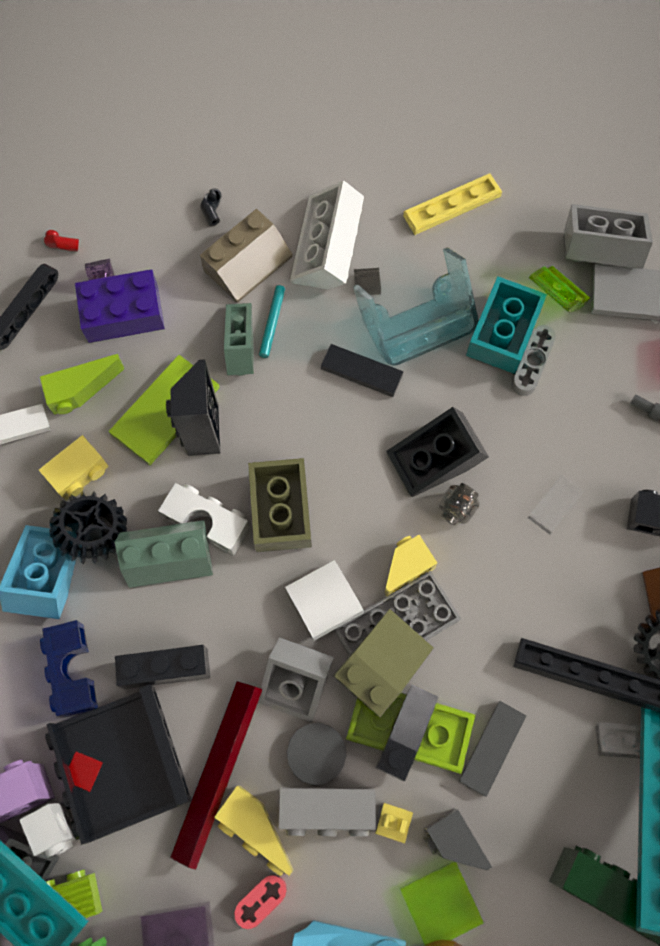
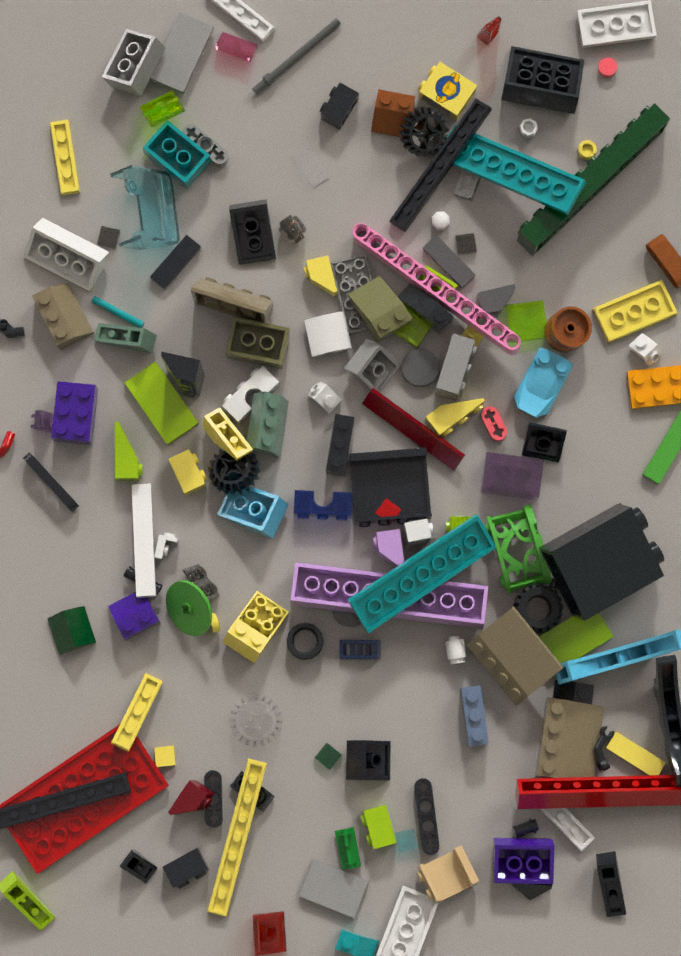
camera: 75 degrees left, 10 degrees up
(131, 500) = (225, 434): none -> light yellow slope
(230, 623) = (324, 396): none -> white bracket
(329, 451) = (231, 301): none -> dark tan slope
(440, 756) = (440, 296): none -> bright pink beam
(529, 766) = (465, 244): none -> clear smoke tile
(550, 715) = (440, 221): none -> white tile

